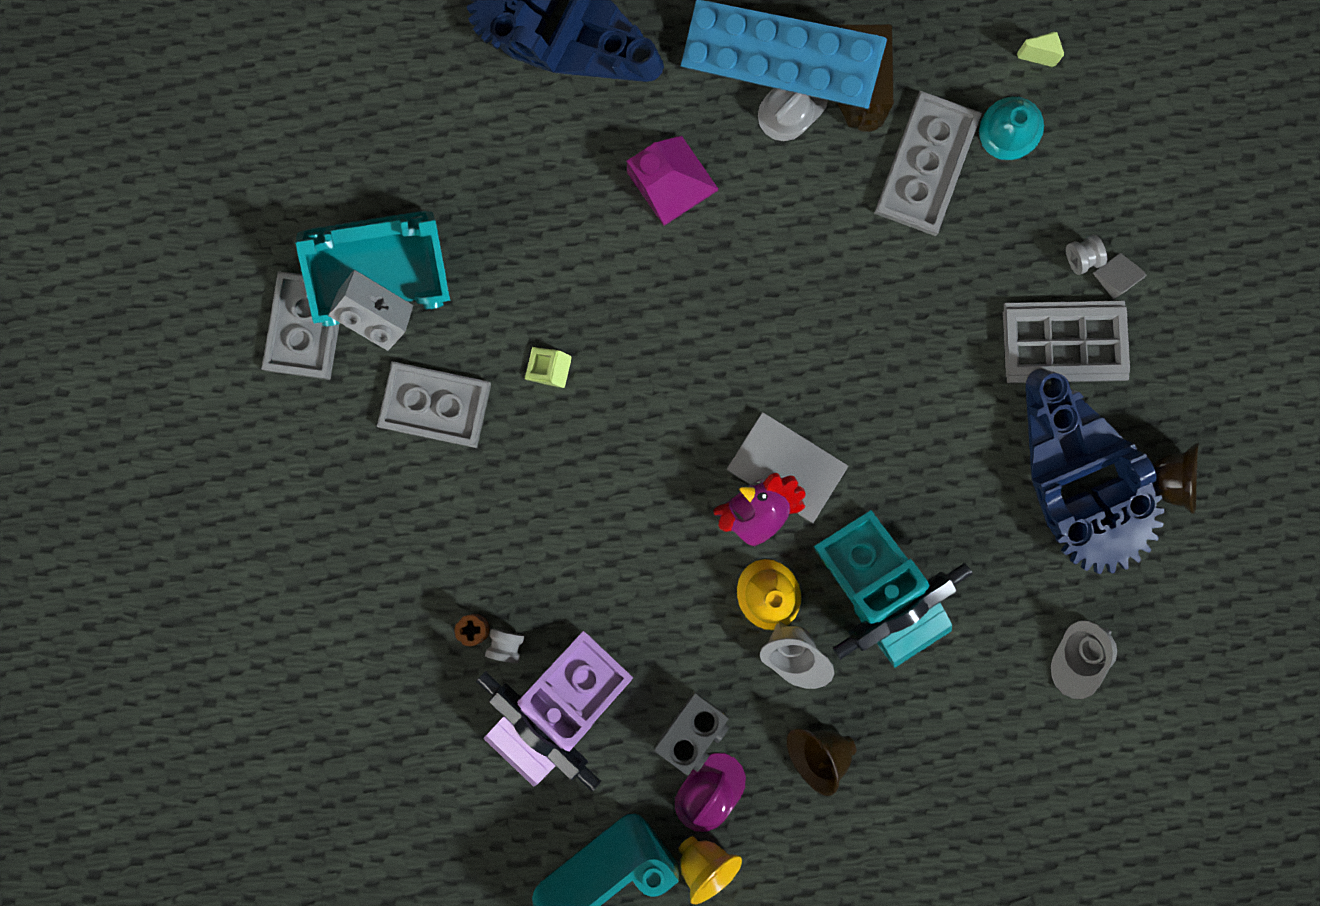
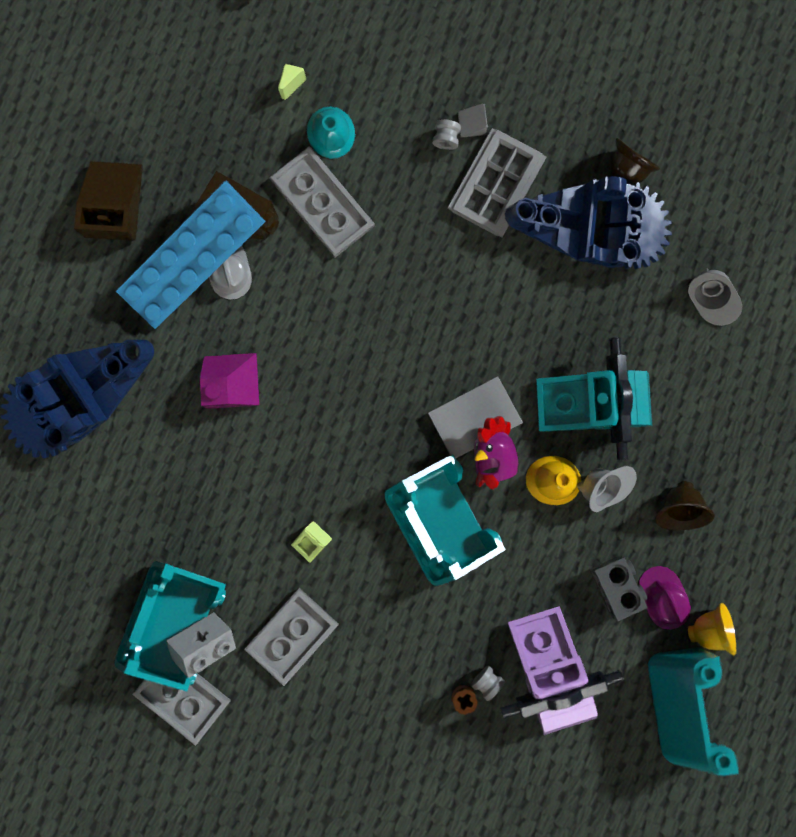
camera: 55 degrees left, 0 degrees up
(651, 493) = (441, 523): none -> teal windscreen

